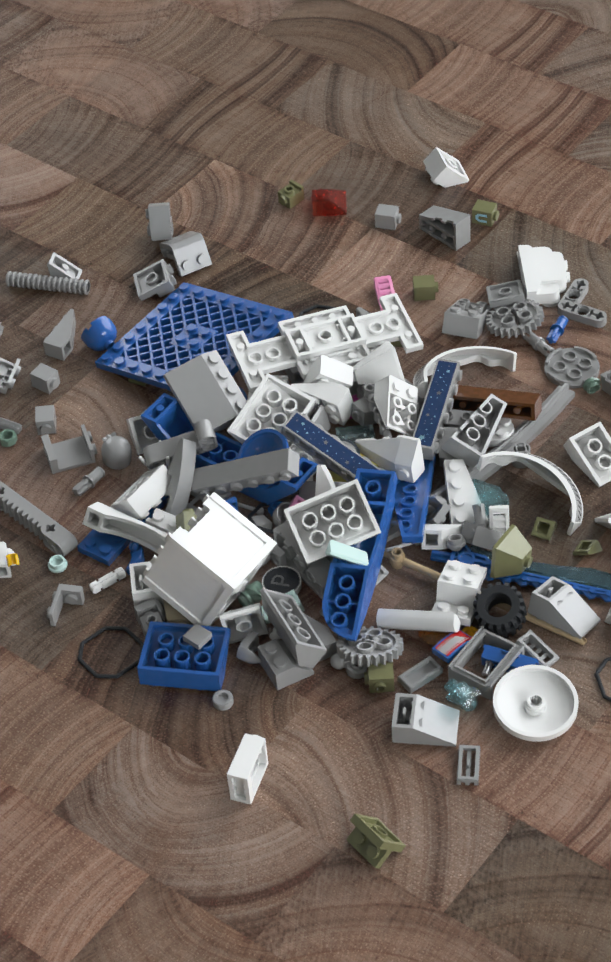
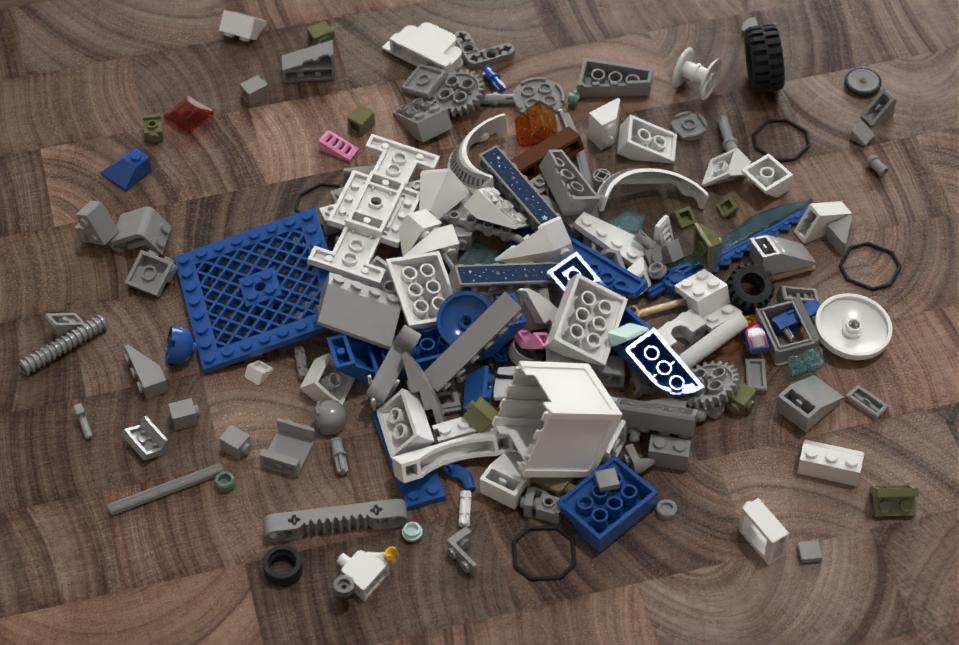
camera: 55 degrees left, 5 degrees up
(125, 391) = (258, 372): none -> white slope
(239, 209) = (128, 169): none -> blue slope
(267, 817) = (809, 551): none -> light grey tile
(375, 774) = (830, 462): none -> white slope
(391, 592) = (686, 325): none -> white arch
(537, 379) = (536, 124): none -> clear orange slope
(580, 414) = (604, 124): none -> white slope

